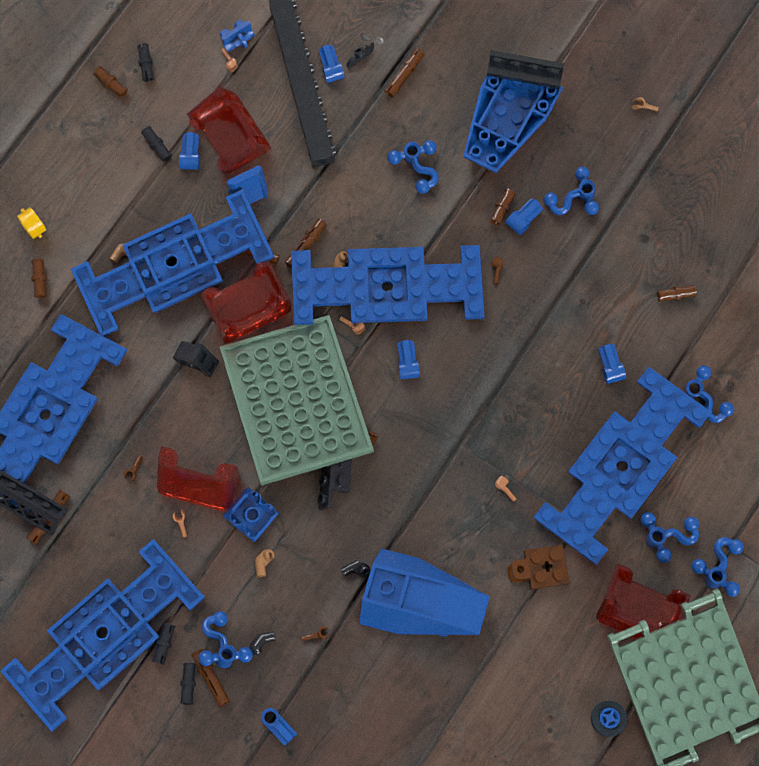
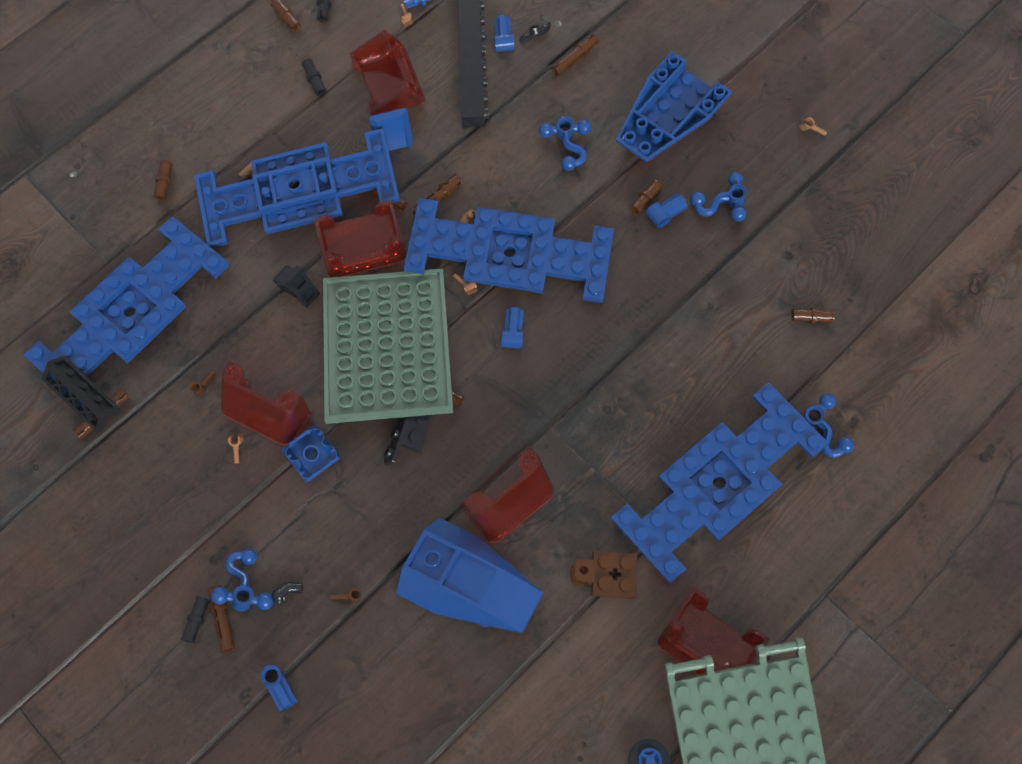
camera: 15 degrees right, 5 degrees down
(31, 223) = (169, 126): yellow piece -> none
(81, 649) = (92, 553): blue piece -> none
(164, 643) = (182, 571): black pin -> none
(189, 157) = (343, 94): blue piece -> none
(262, 560) = (310, 504): medium nougat arm -> none
(356, 567) = (406, 531): black arm -> none
(434, 539) = (513, 505): none -> clear red windscreen
(498, 263) = (628, 250): reddish brown hand -> none
(501, 484) = (584, 476): nougat hand -> none
(525, 69) = (696, 67): black fence -> none
(612, 368) = (728, 380): blue piece -> none
(664, 555) = (747, 587): blue piece -> none
(699, 566) = (785, 610): blue piece -> none

